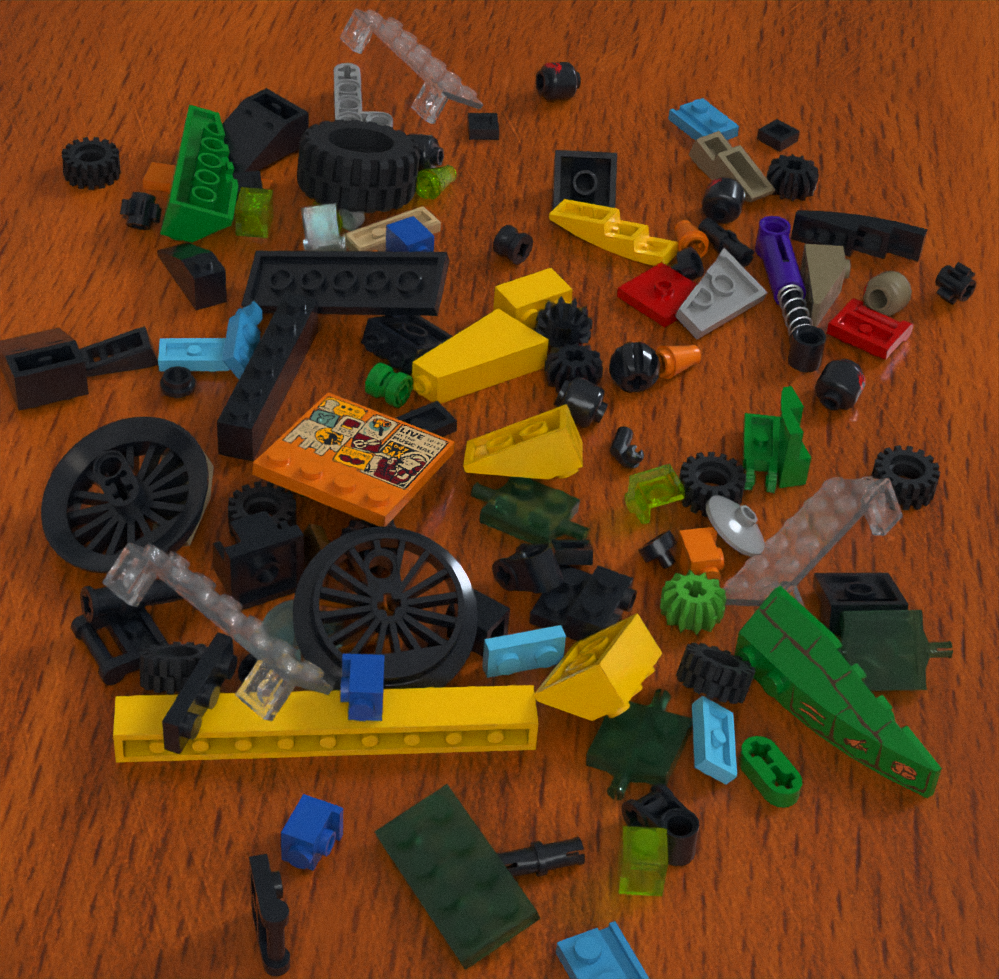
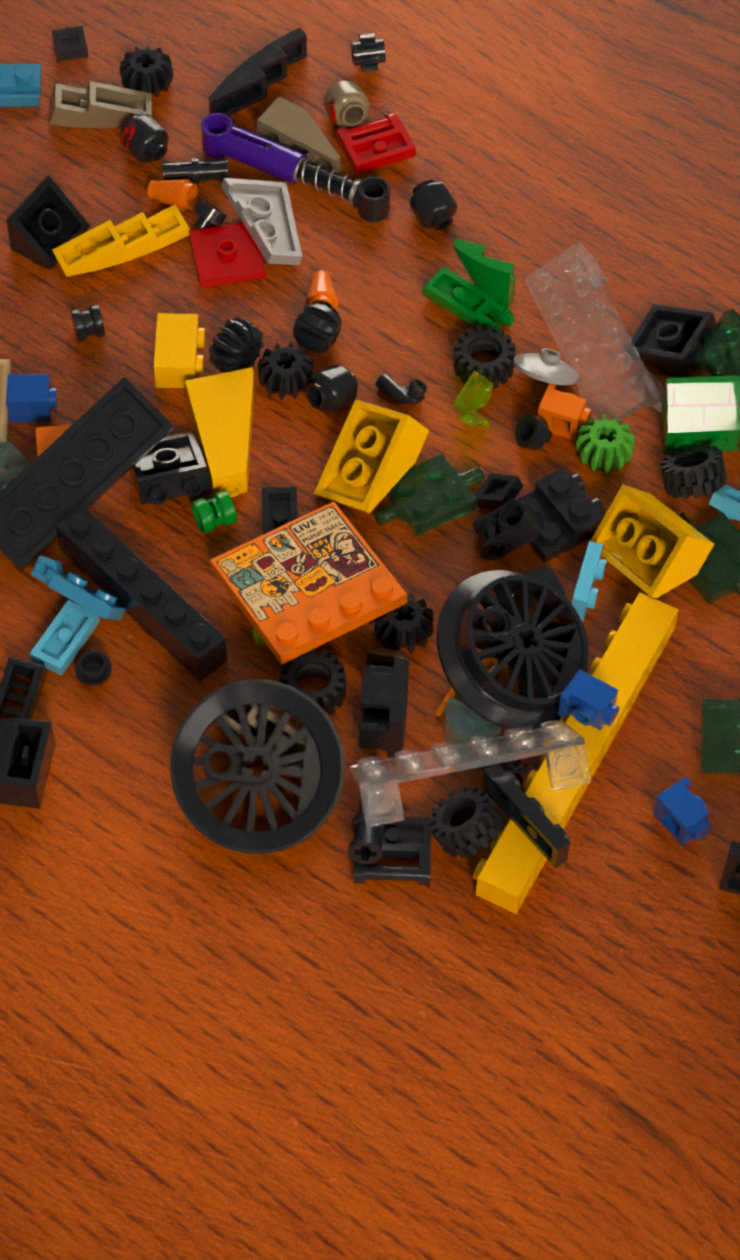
camera: 55 degrees left, 15 degrees up
(913, 465) = (559, 215): black tyre -> none

